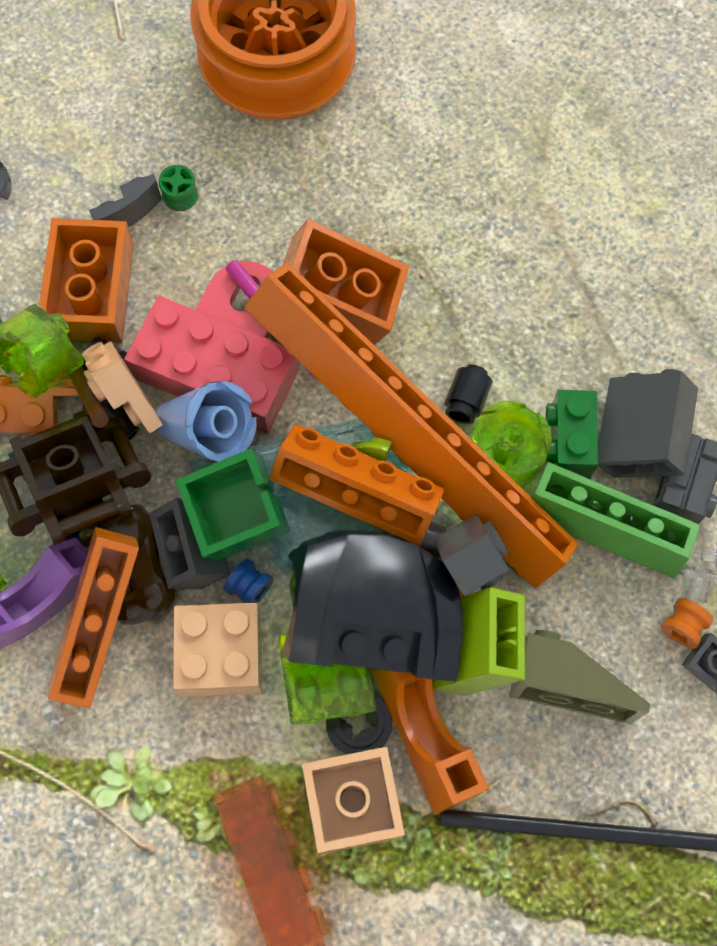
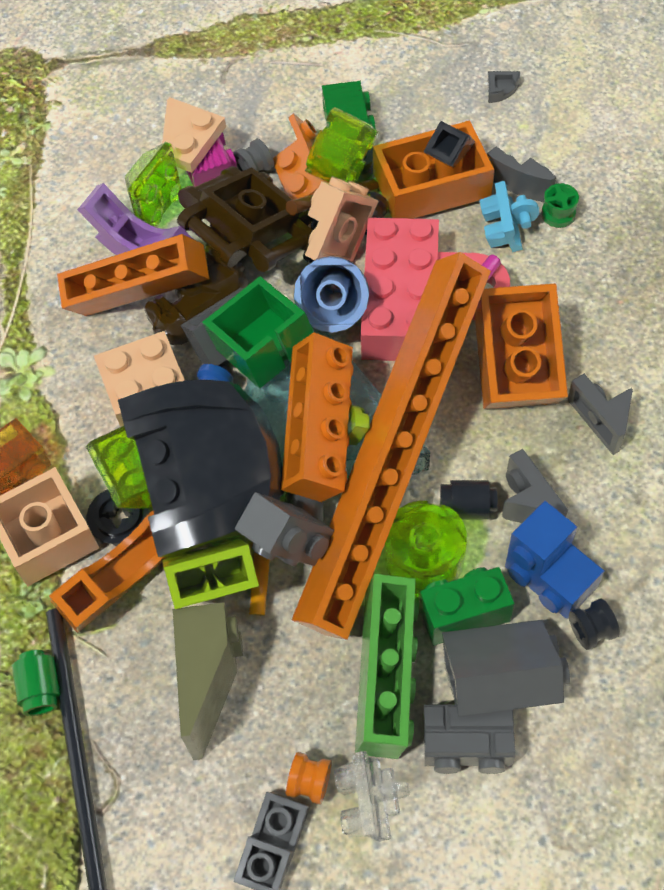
camera: 75 degrees right, 10 degrees down
(78, 248) = (448, 144): none -> black slope
(154, 236) = (511, 214): none -> medium azure hips
(431, 248) = (604, 417): none -> dark grey slope
(489, 335) = (530, 489): none -> dark grey slope
(516, 851) = (36, 683): none -> green brick
(559, 348) = (549, 563): none -> blue brick
(622, 341) = (594, 624): none -> black wheel

